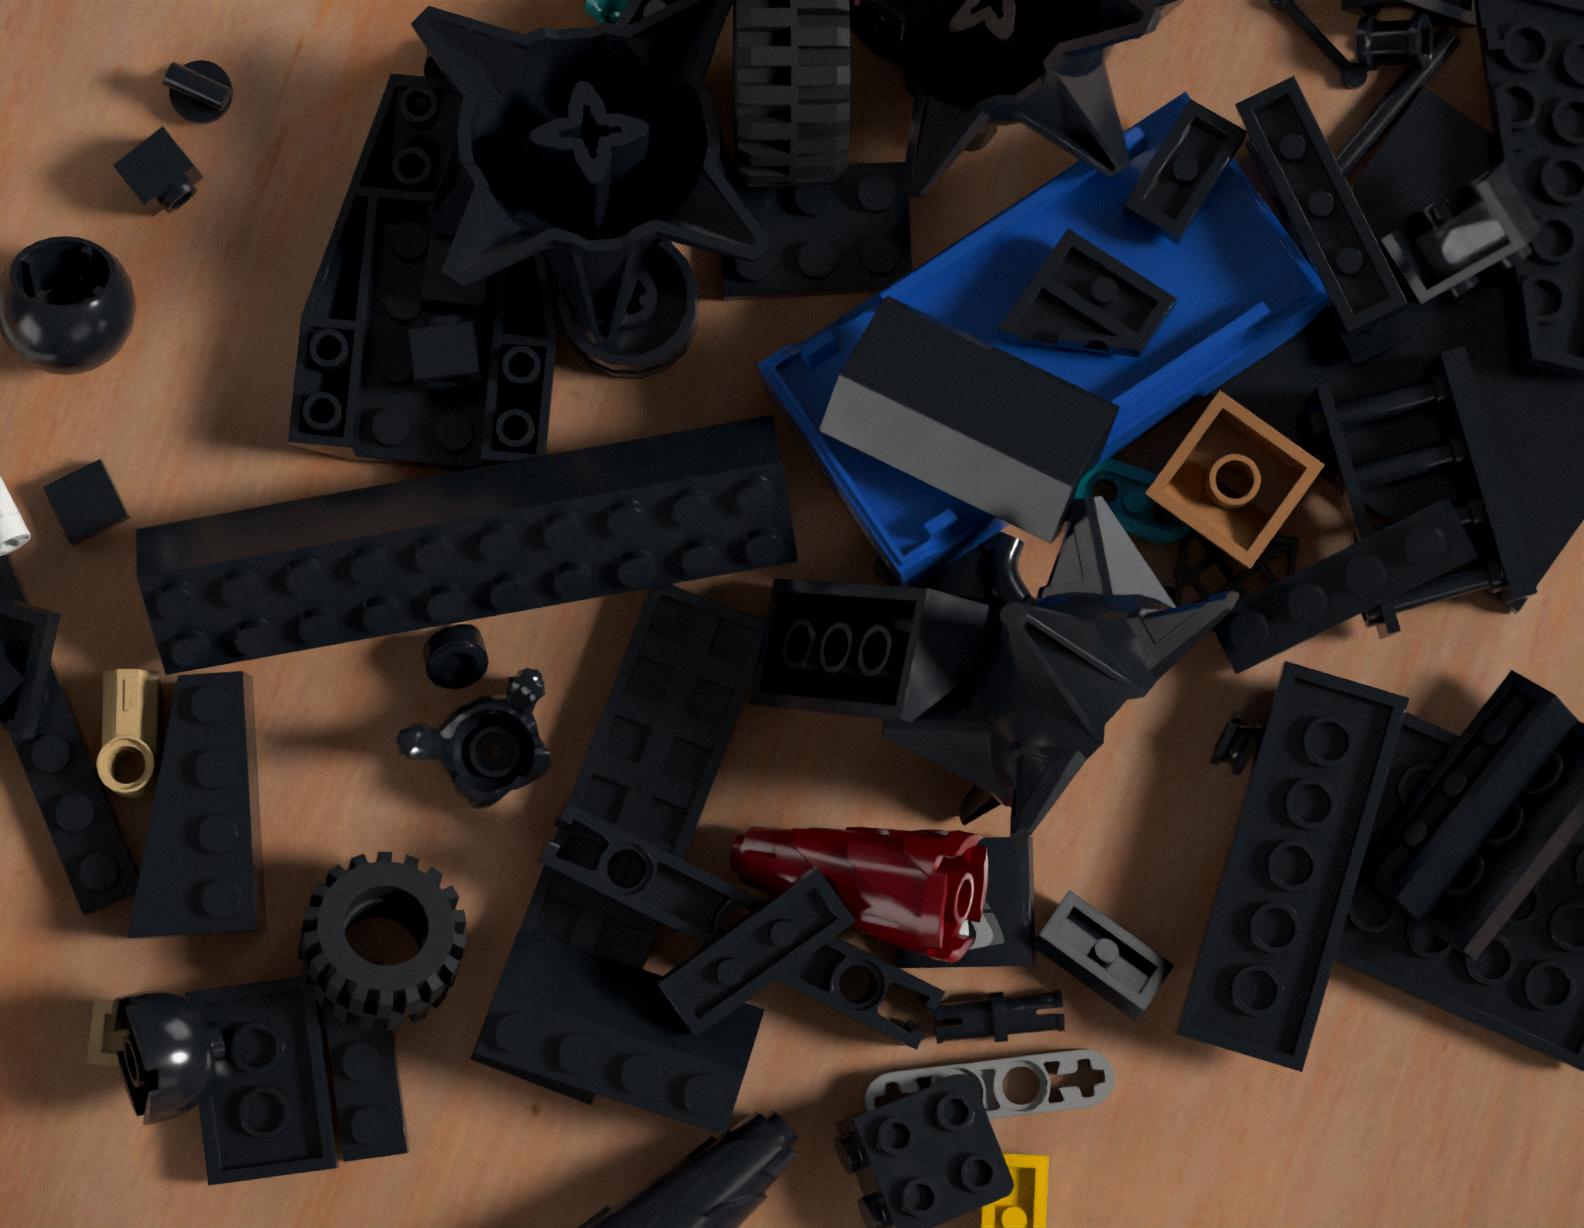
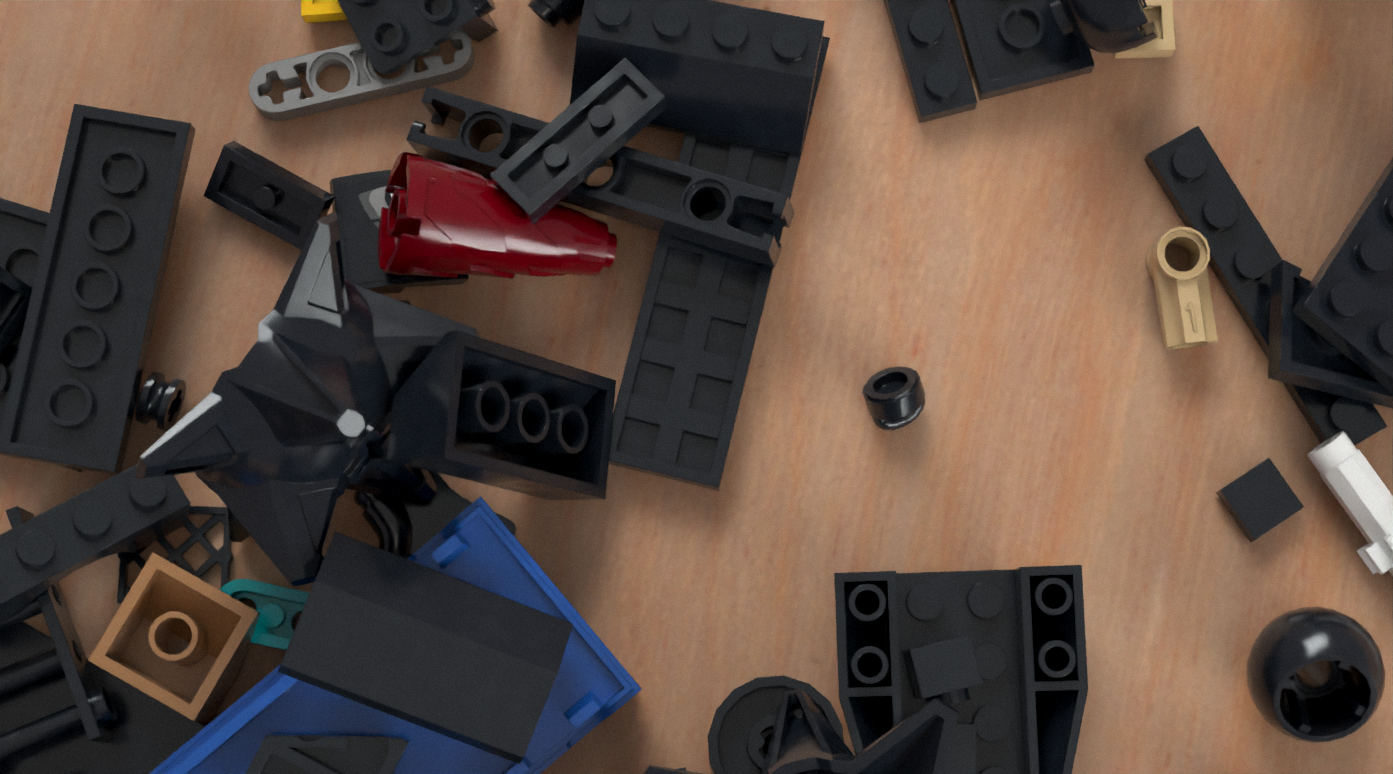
camera: 175 degrees right, 5 degrees down
(205, 823) = (1099, 211): black wedge -> none
(393, 893) = (912, 175): black tyre -> none
(466, 545) = (897, 490): black brick -> none
(473, 729) = (874, 315): black hair -> none
(999, 1016) = (356, 134): black pin -> none

